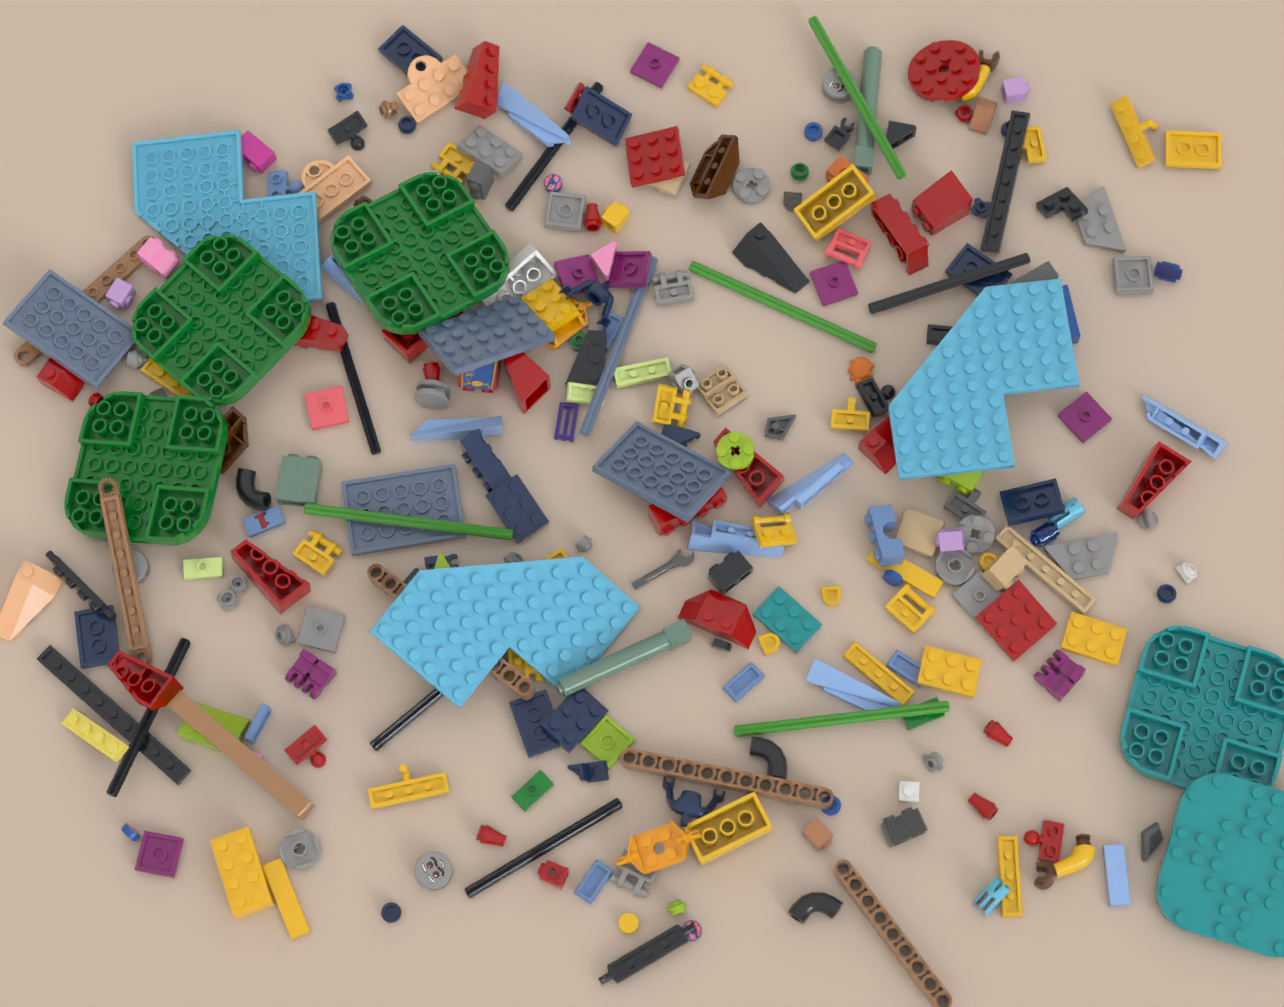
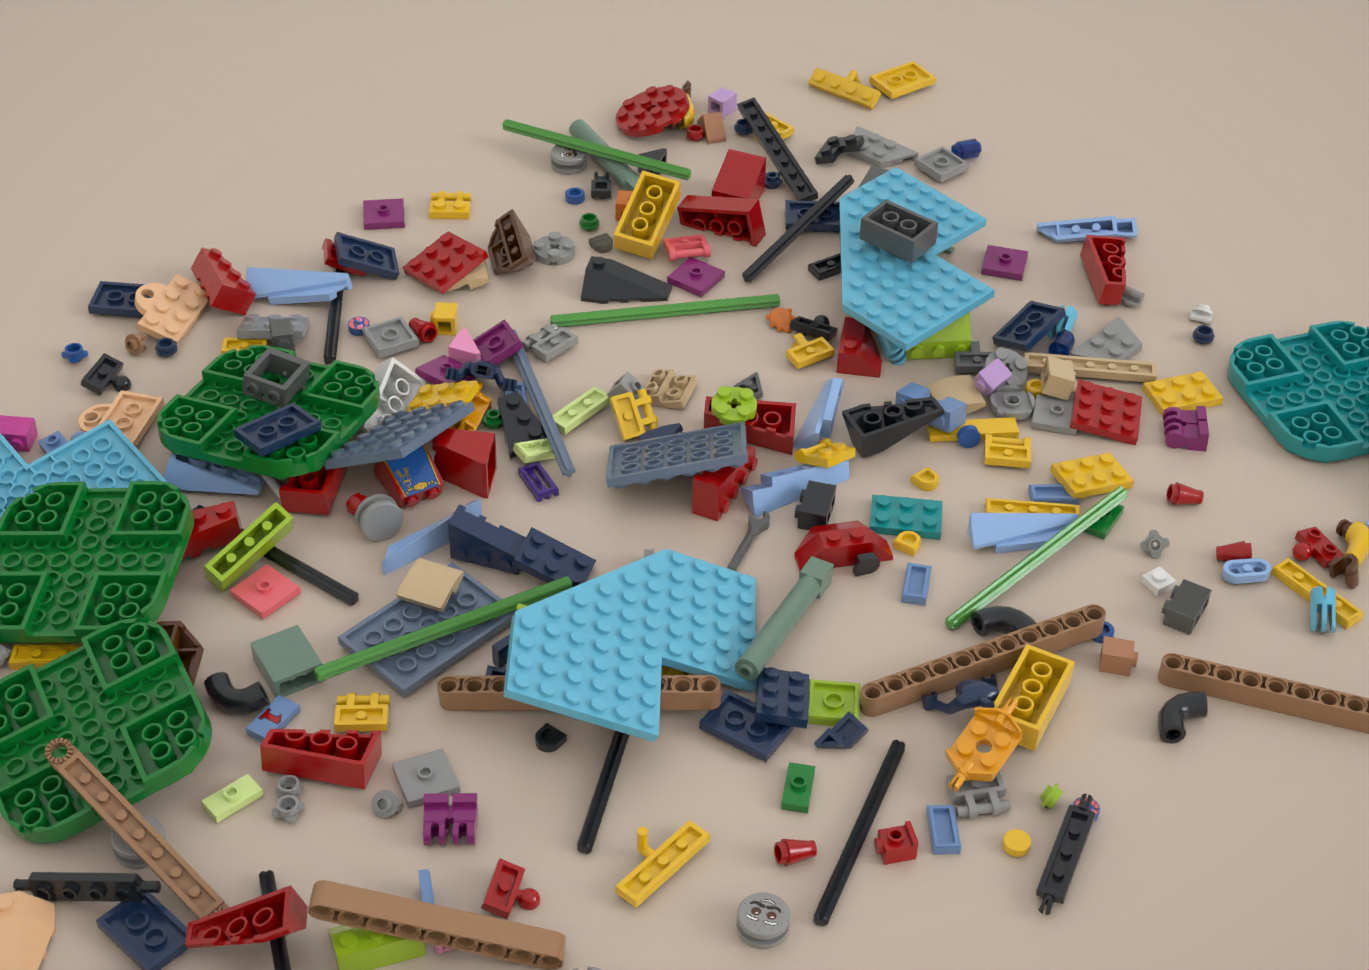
camera: 40 degrees left, 30 degrees down
(332, 370) = (248, 547): none -> lime brick
(398, 289) = (277, 429): none -> dark blue plate
(422, 478) = (430, 584): none -> tan slope
(450, 218) = (281, 364): none -> dark grey window
(838, 533) = (882, 426): none -> black wedge
(975, 827) = (1246, 570): none -> light blue plate
(982, 365) = (898, 230): none -> dark grey brick

